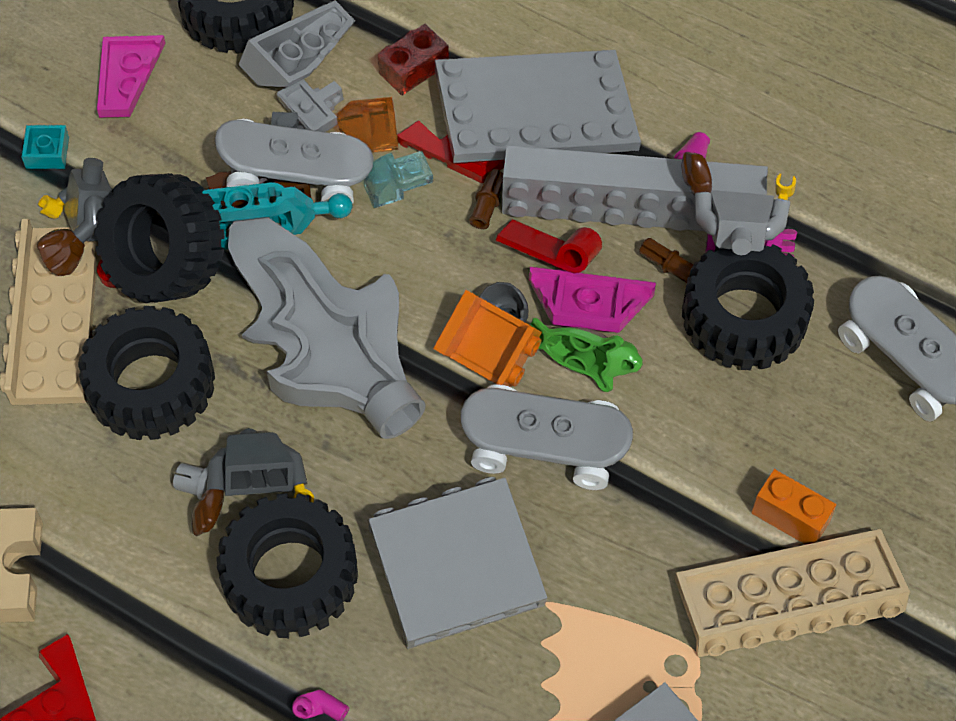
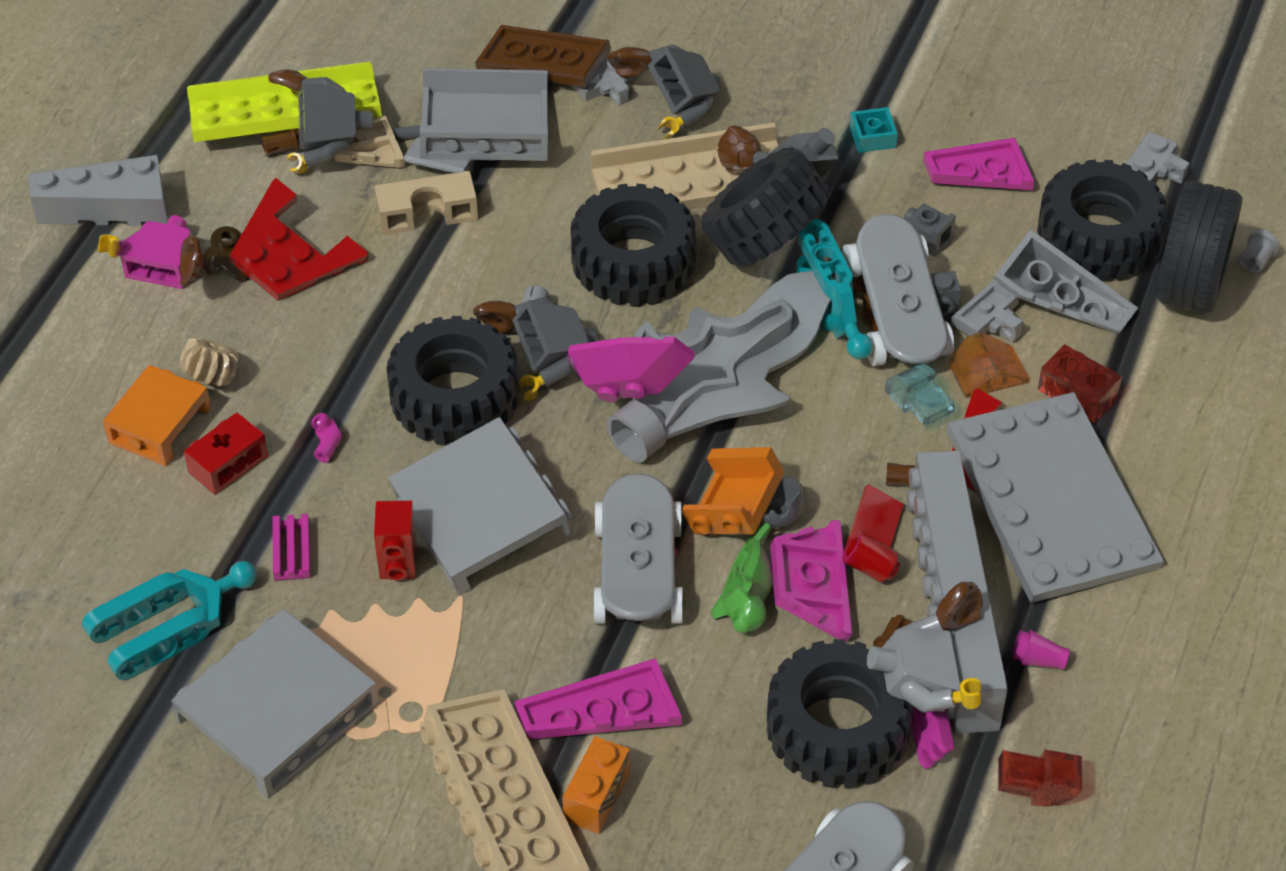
camera: 80 degrees right, 10 degrees down
(193, 128) = (933, 225): none -> dark grey brick
(337, 395) = (629, 365): none -> dark pink wedge
(493, 643) = (395, 540): none -> red brick
(700, 493) = (605, 703): none -> dark pink wing
(823, 177) = (1046, 779): none -> clear red brick

